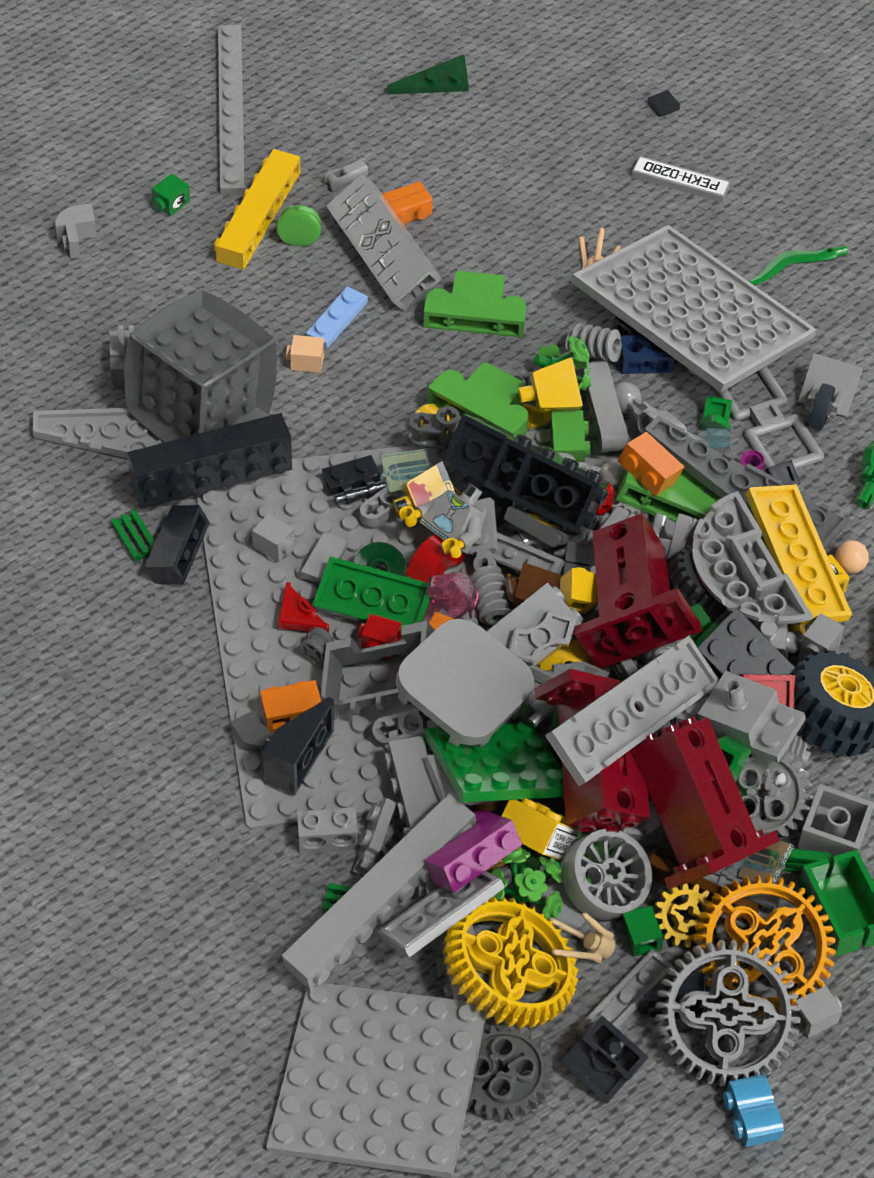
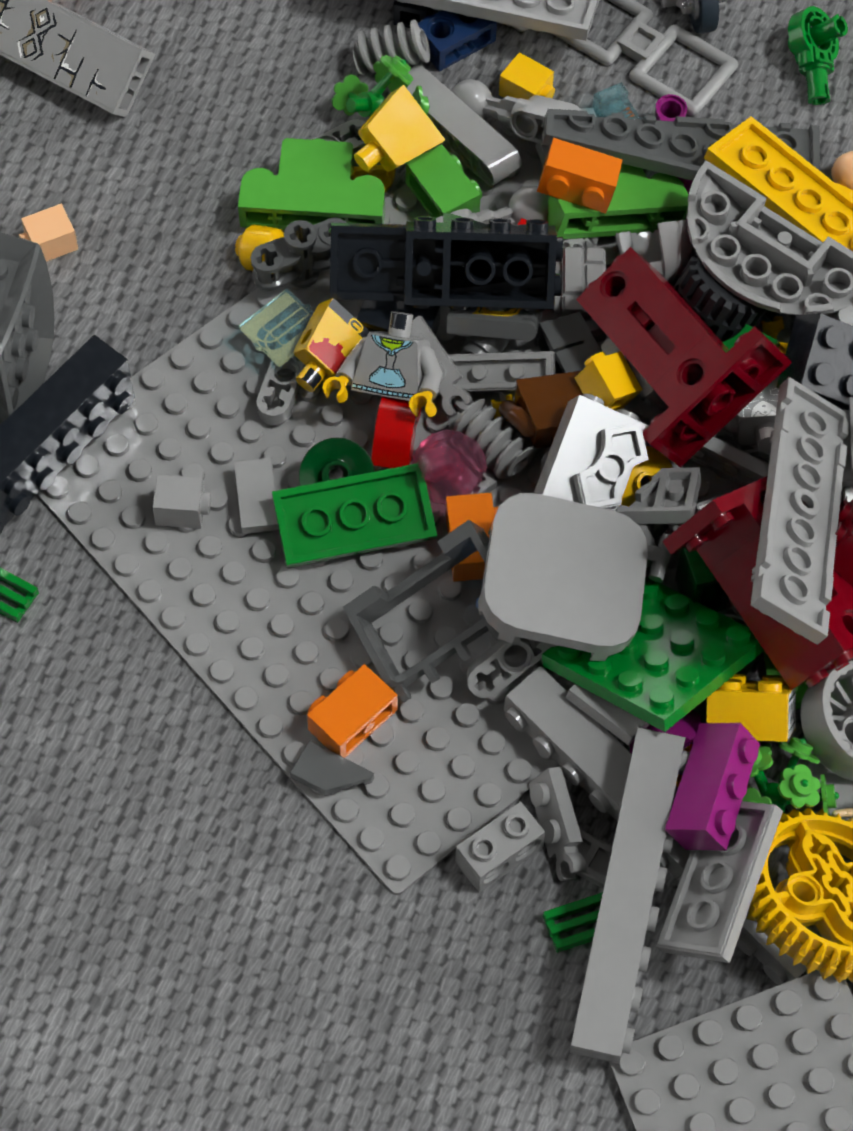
camera: 30 degrees left, 10 degrees up
(177, 544) = (62, 573): black brick -> none
(297, 747) = (400, 781): black slope -> none
(298, 613) = (274, 584): red tile -> none
(315, 646) = (328, 614): dark grey wheel -> none
(338, 316) = (50, 164): light blue plate -> none
(350, 475) = (215, 367): black plate -> none
(379, 632) = (393, 559): red brick -> none
(475, 307) = (214, 69): bright green brick -> none
(671, 399) = (526, 78): none -> yellow brick
(716, 413) = (585, 70): green tile -> none
(784, 472) = (712, 106): black tile -> none

